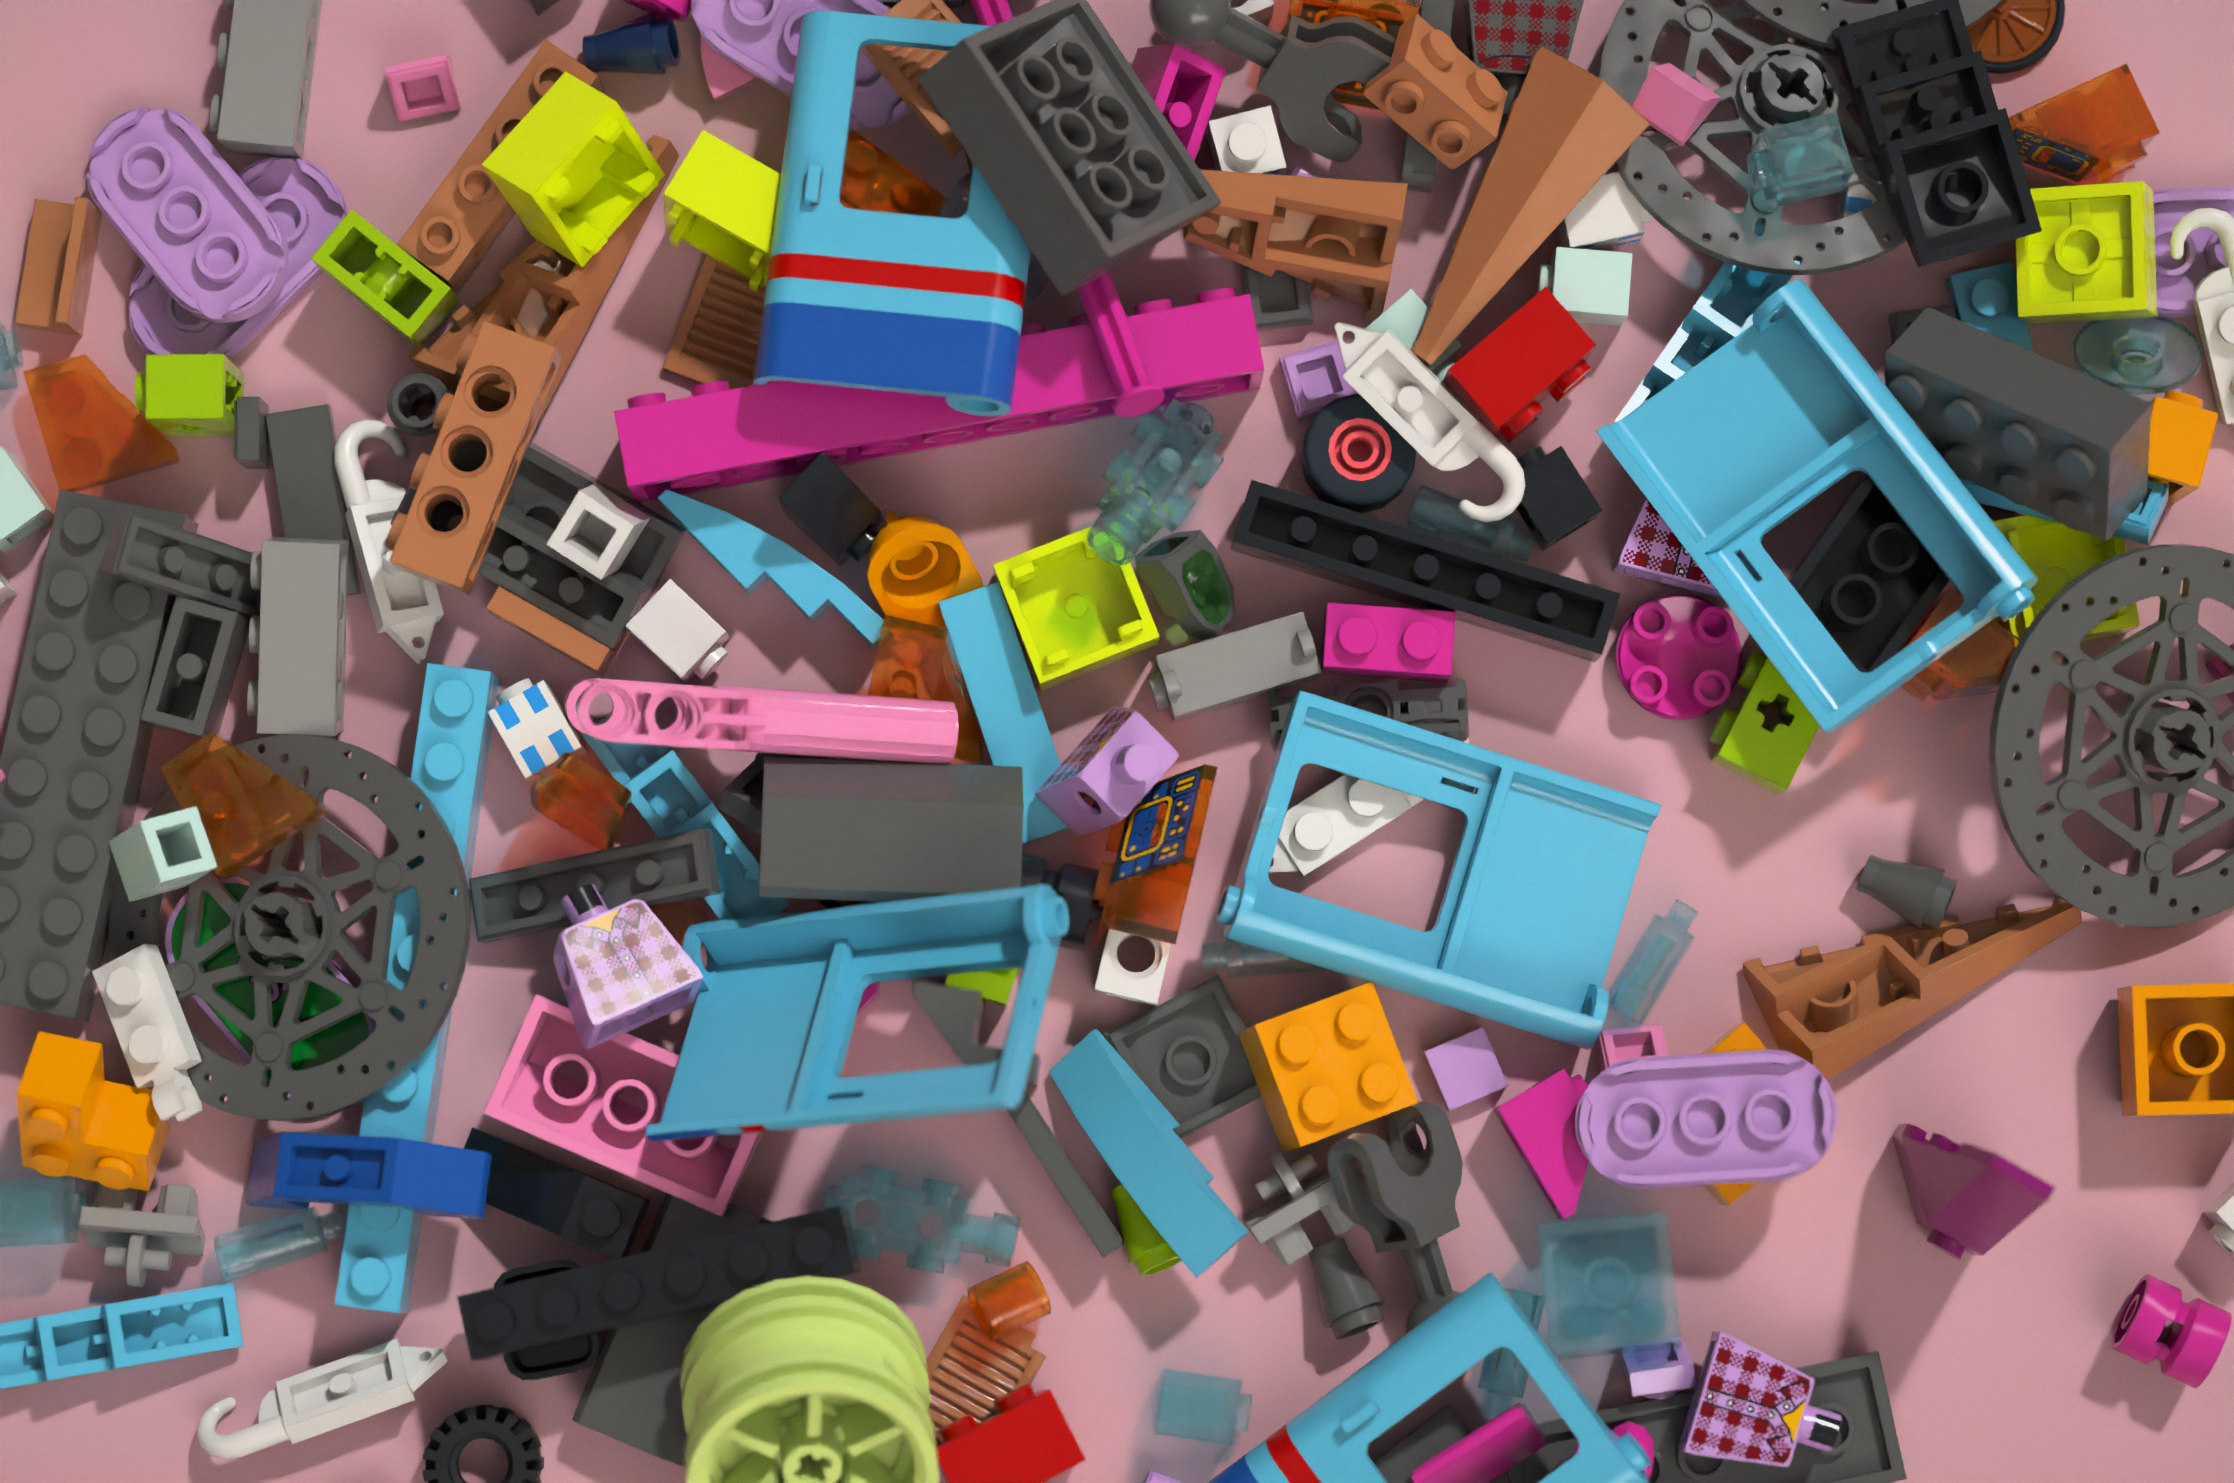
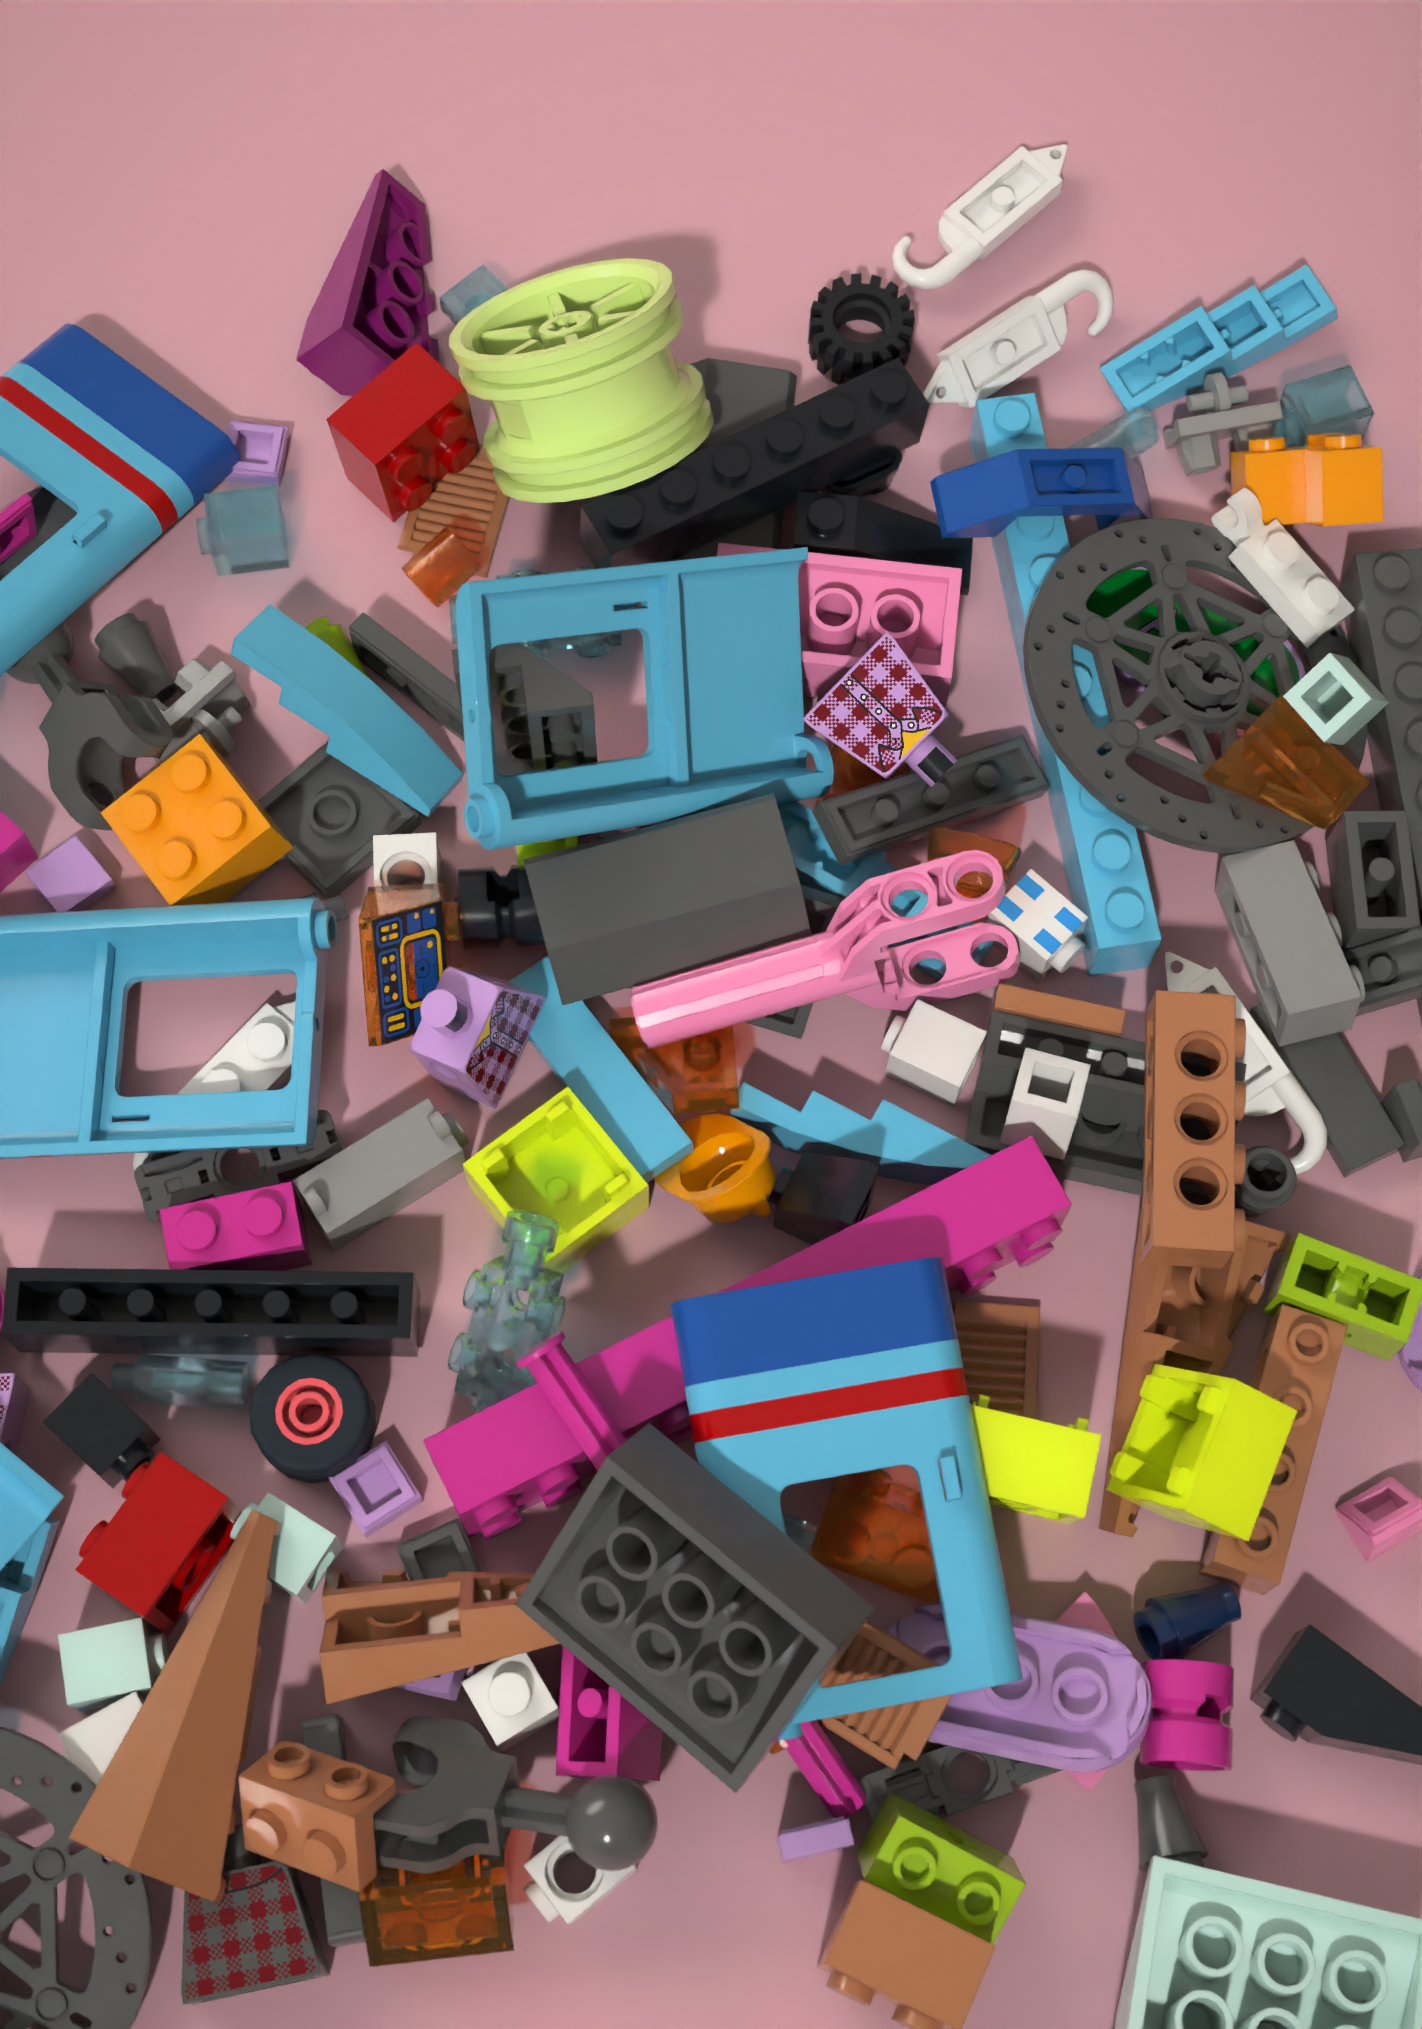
camera: 165 degrees right, 15 degrees down
(1188, 582) = (449, 1237): dark grey rock -> none
(1427, 414) = (247, 1462): white plate -> none
(1674, 102) = (51, 1884): bright pink slope -> none

